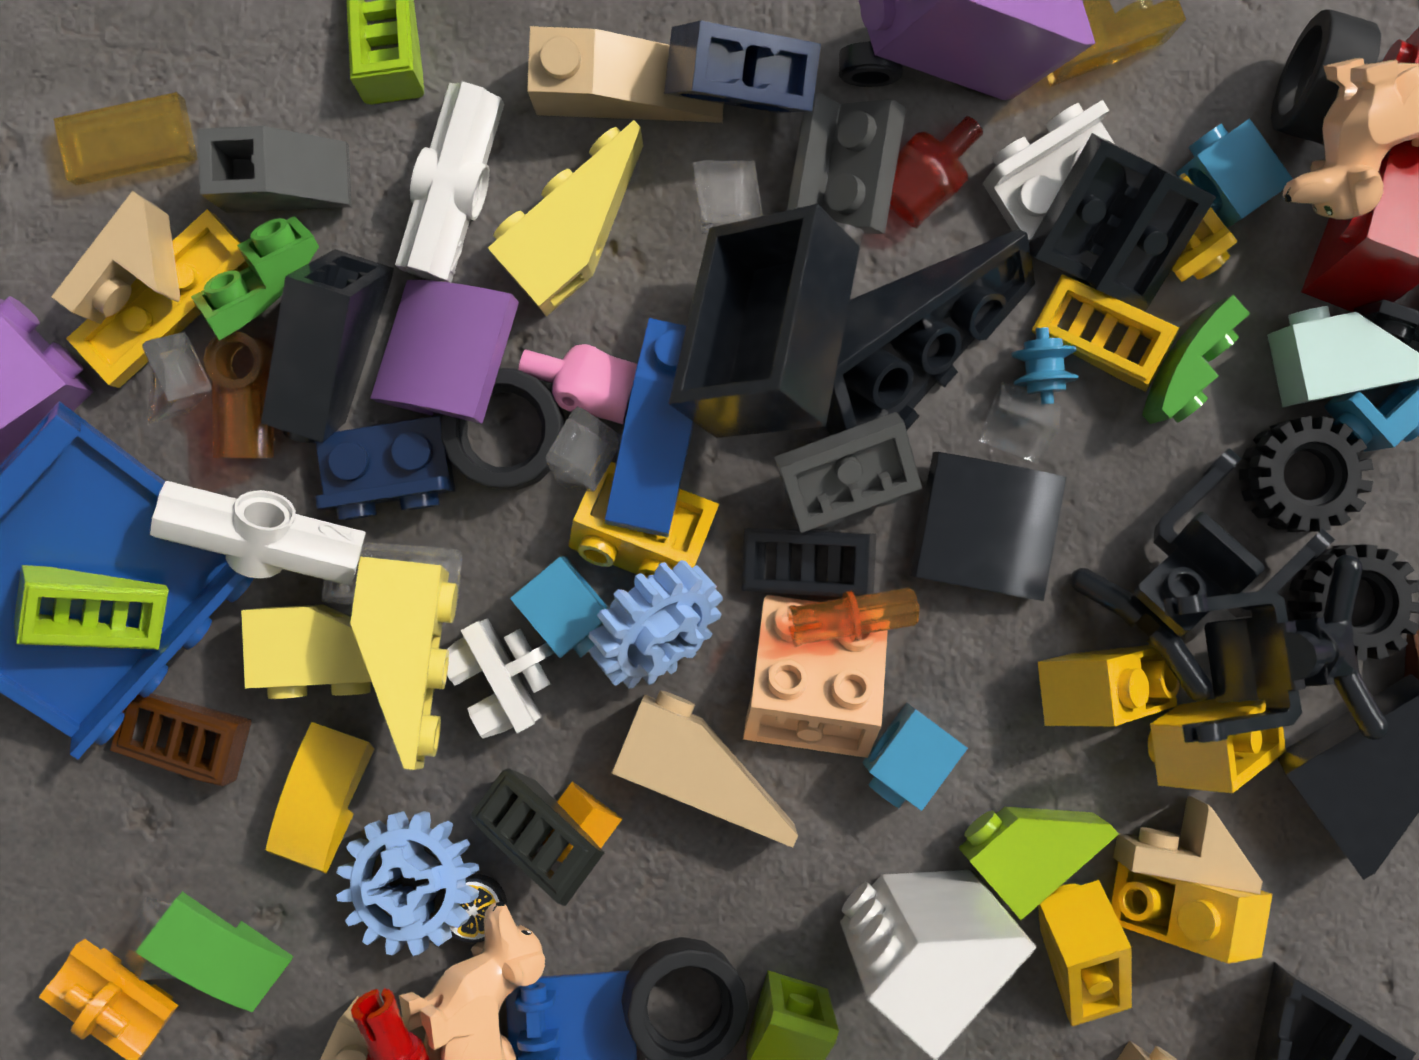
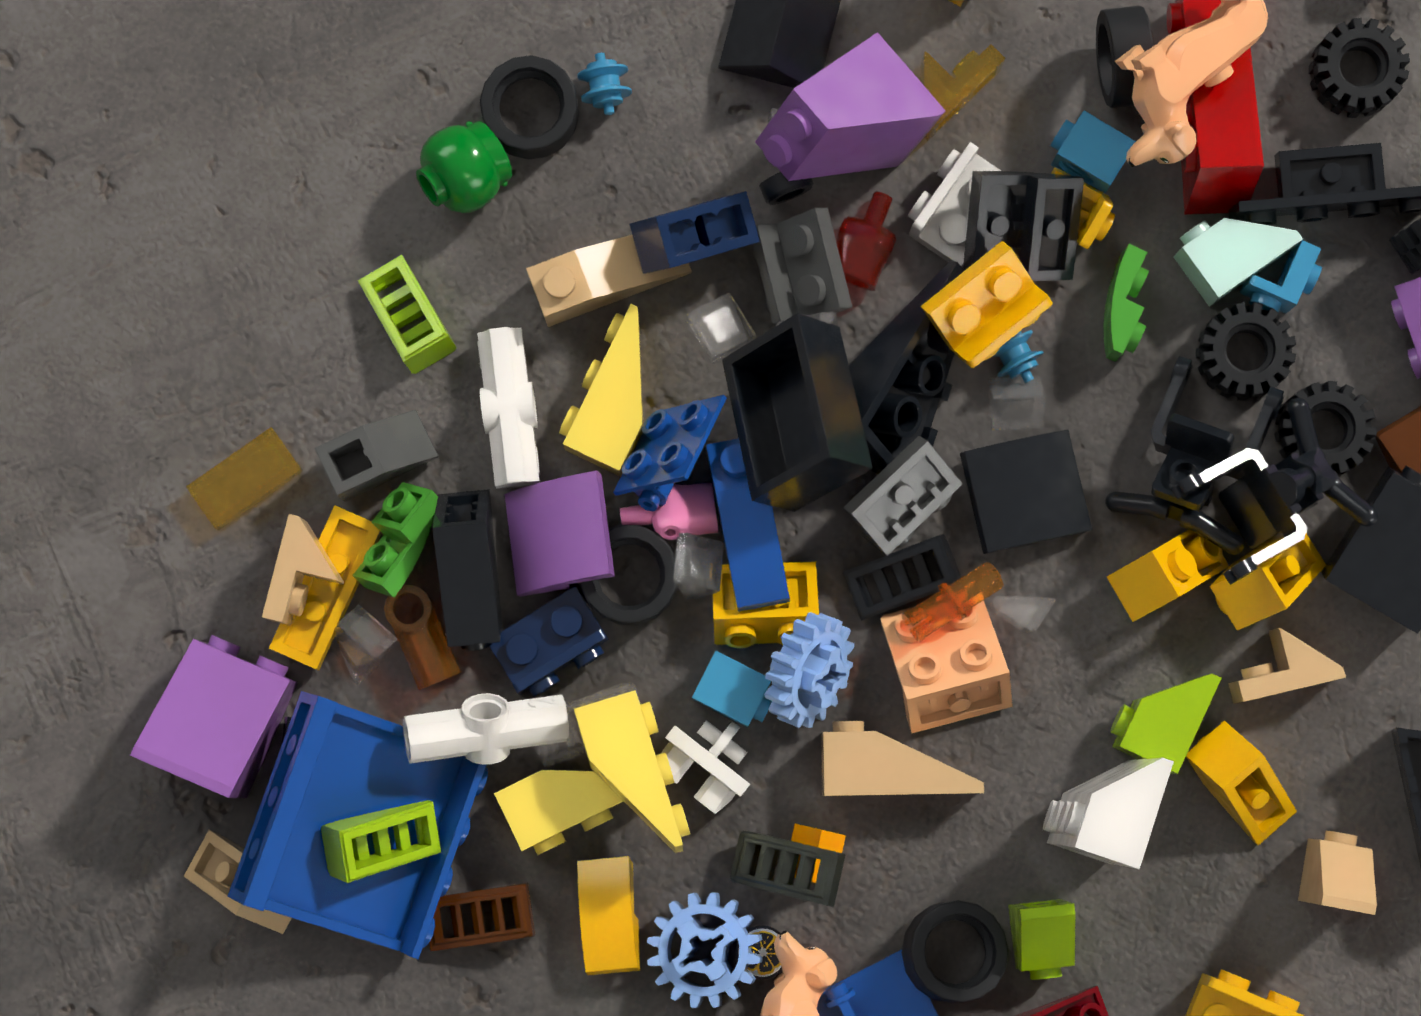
camera: 20 degrees left, 5 degrees down
(601, 306) = (668, 450): none -> blue hinge
(912, 759) = (1045, 690): dark azure brick -> none
(926, 662) = (1020, 611): none -> clear slope
(1039, 295) = (986, 305): none -> yellow bracket
(1138, 322) = (1072, 291): yellow slope -> none
(1193, 915) = (1305, 714): yellow slope -> none

